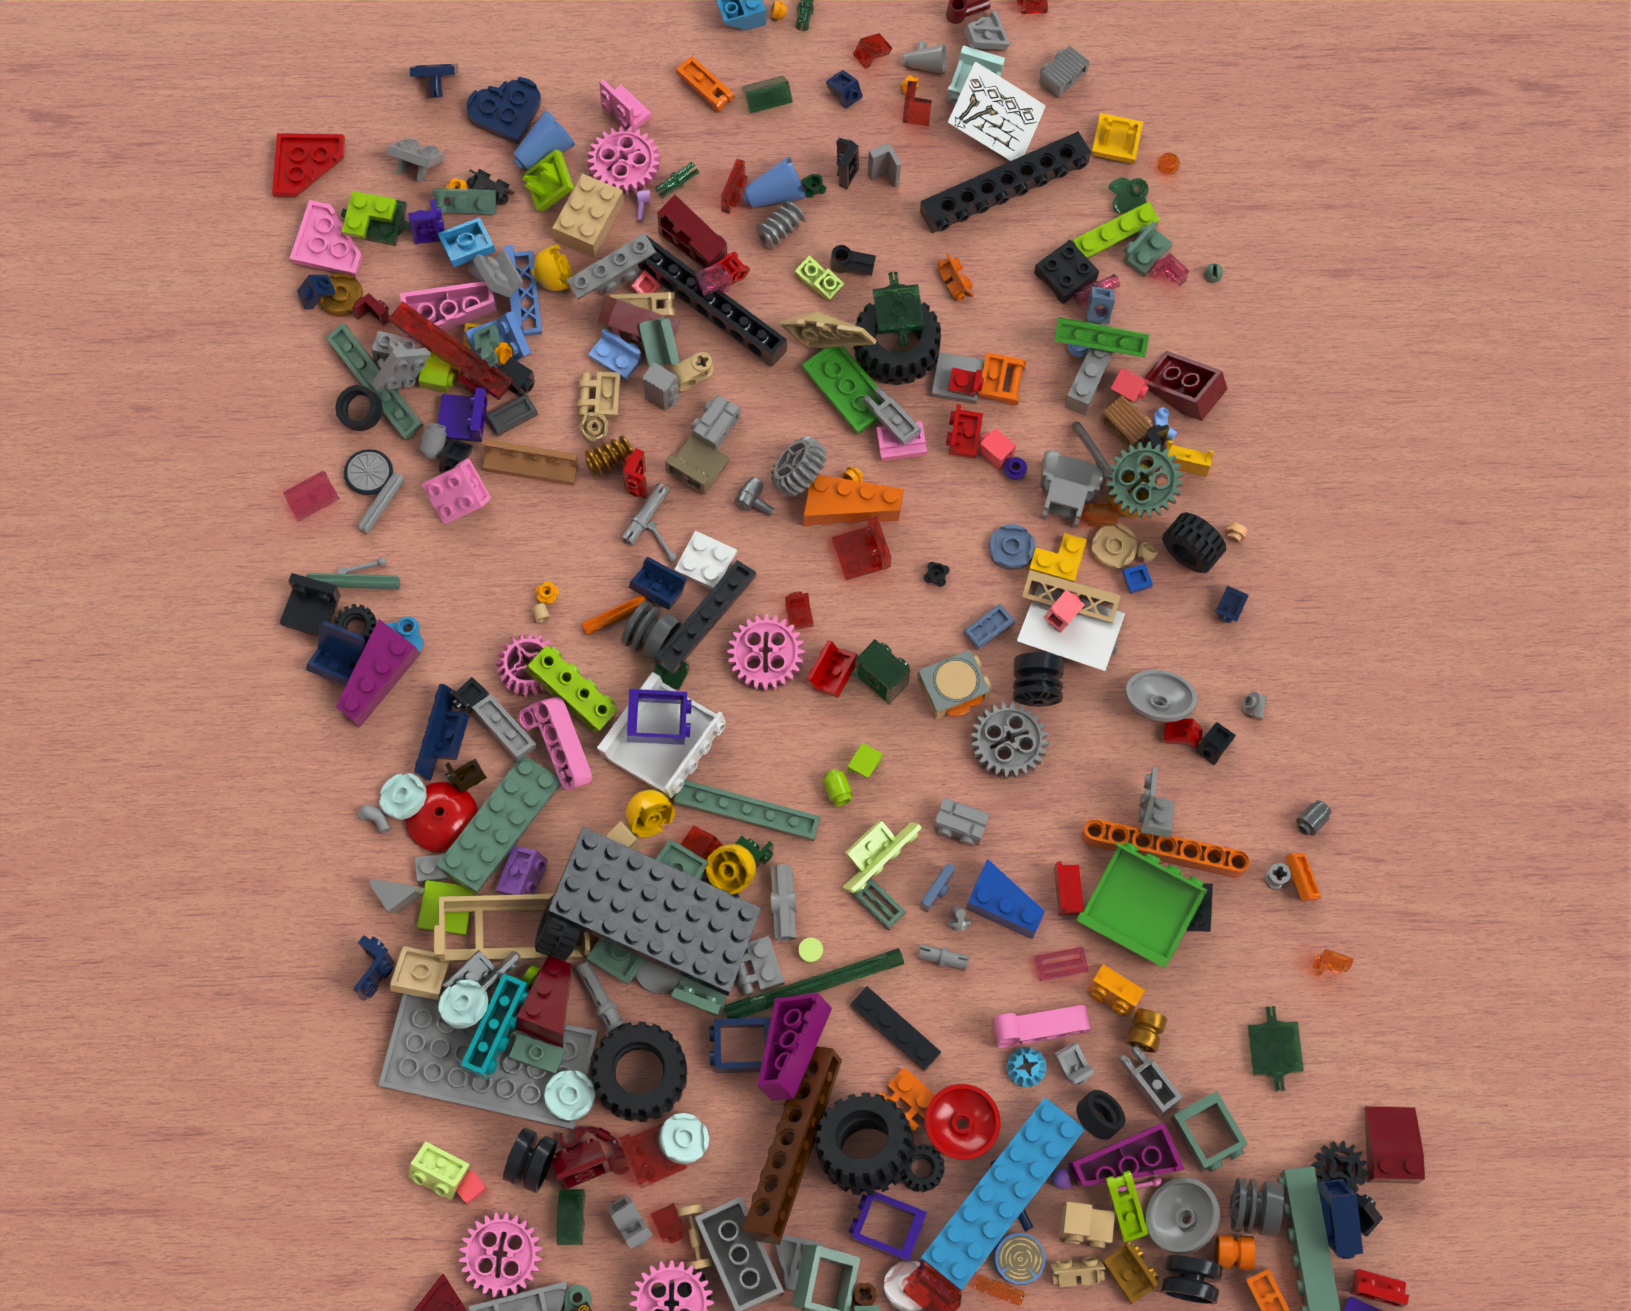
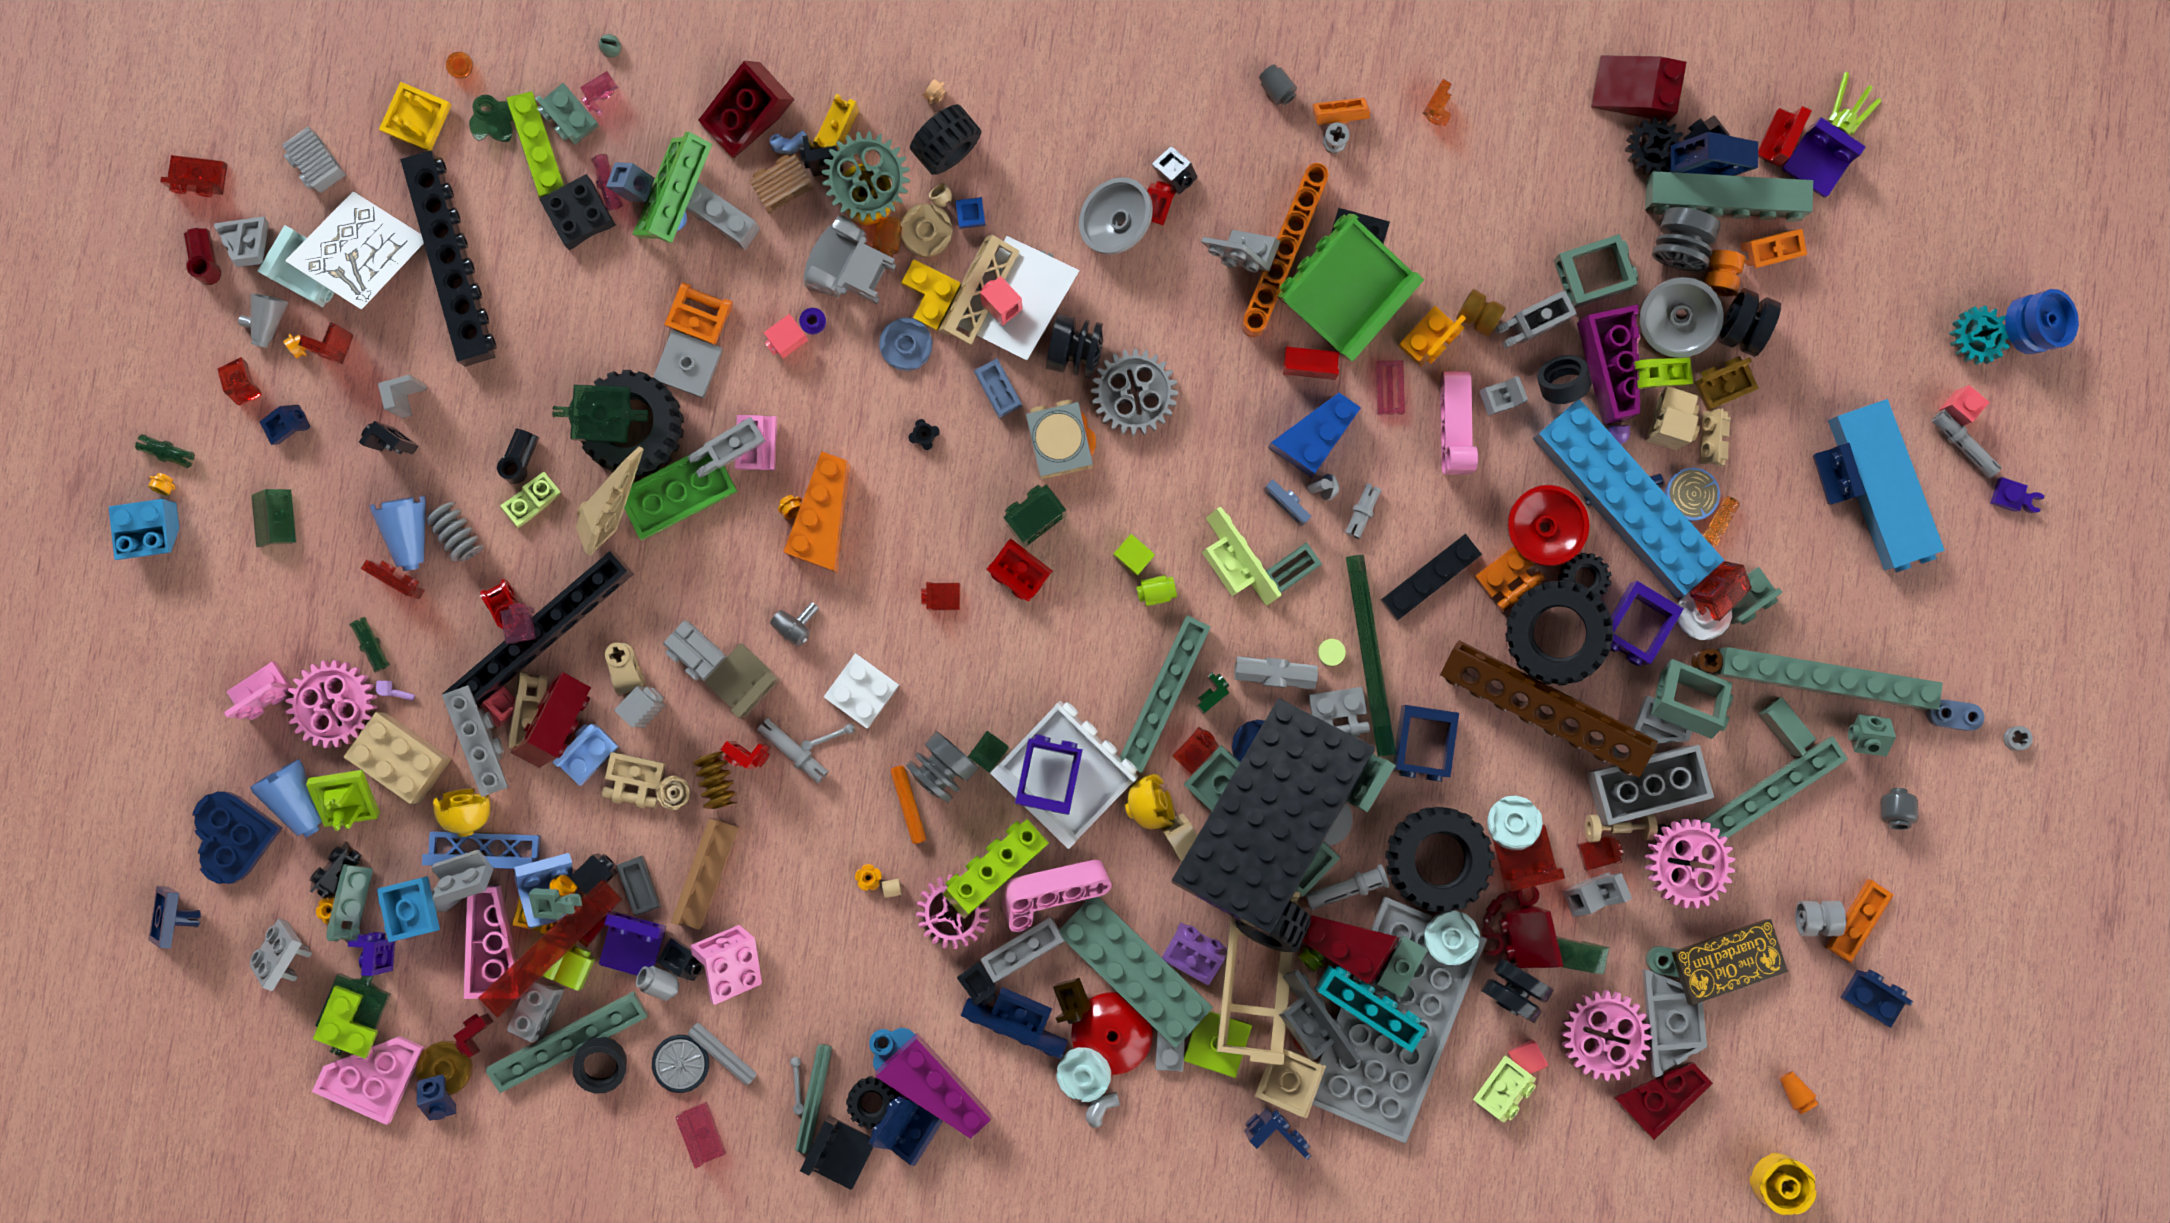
camera: 80 degrees left, 15 degrees up
(303, 160) = (255, 1091): red plate -> none
(395, 895) = (1194, 1098): light grey slope -> none
(400, 367) = (562, 1011): light grey plate -> none
(463, 1004) = (1343, 1040): light aqua tile -> none
(658, 583) = (881, 749): dark blue bracket -> none
(659, 342) = (585, 700): sand green panel -> none
(690, 233) = (448, 639): dark red wedge -> none
(704, 617) = (934, 702): black plate -> none
(705, 83) = (244, 590): orange plate -> none
(731, 868) = (1233, 722): yellow cylinder -> none
(787, 652) = (980, 666): bright pink gear -> none
(791, 1042) = (1440, 691): magenta wedge -> none
(798, 466) = (771, 565): light grey gear -> none
(813, 179) = (400, 481): dark green plate -> none
(862, 550) = (882, 512): clear red bracket -> none
(952, 269) = (550, 343): orange hinge -> none
(961, 822) = (1218, 462): light grey brick -> none
(965, 382) = (699, 355): red bracket -> none
(965, 432) = (759, 368): red bracket -> none
(1020, 1076) = (1486, 456): medium azure gear -> none
(1092, 448) = (811, 228): flat silver bar -> none
(1130, 385) = (736, 169): coral brick -> none
(1231, 604) = (1020, 116): dark blue bracket -> none
(1254, 705) = (1138, 119): light grey plate -> none
(1275, 1048) = (1518, 183): clear green plate -> none

